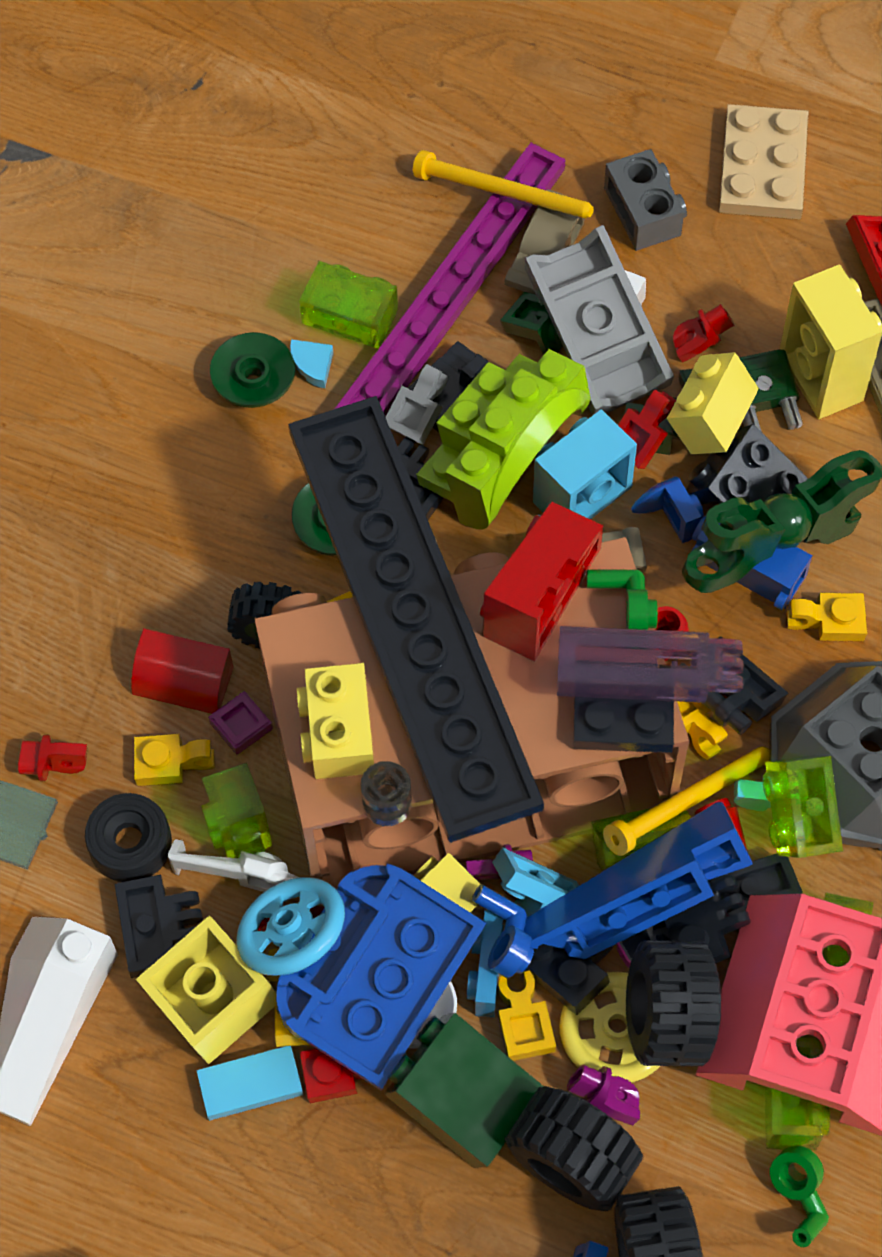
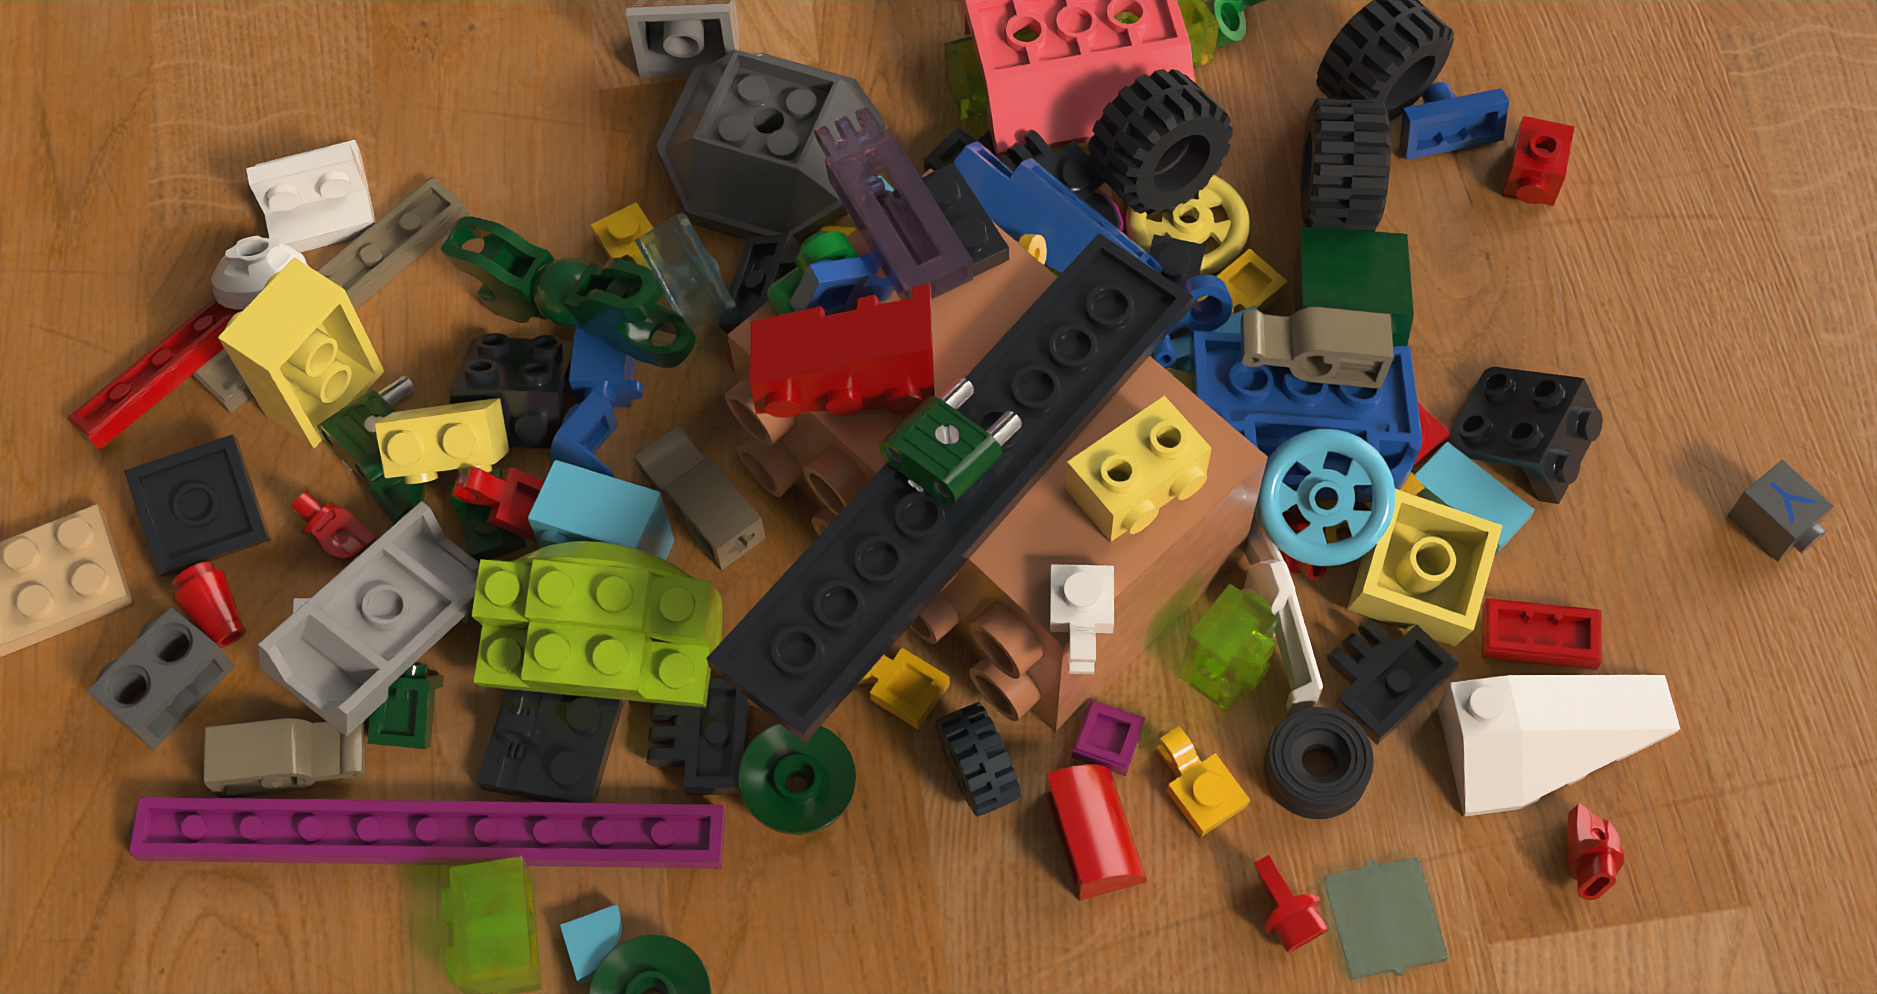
camera: 120 degrees left, 0 degrees up
(114, 1052) = (1542, 633): none -> red plate
(268, 640) = (1082, 607): none -> white plate
(272, 1156) = (1531, 424): none -> black bracket
(387, 805) = (1176, 381): clear smoke wheel -> none
(412, 993) = (1321, 345): none -> dark tan piece
(414, 411) = (611, 762): light grey plate -> none
(425, 594) = (944, 448): none -> dark green piece
(426, 166) = (223, 846): yellow bar -> none
(608, 1093) = (1259, 195): magenta piece -> none
(609, 599) = (839, 284): none -> blue plate
(683, 244) = (209, 603): none -> red cone
(760, 259) = (197, 505): none -> black hinge
(772, 625) = (685, 271): none -> clear light blue tile
(802, 806) = (909, 113): clear neon green brick -> none

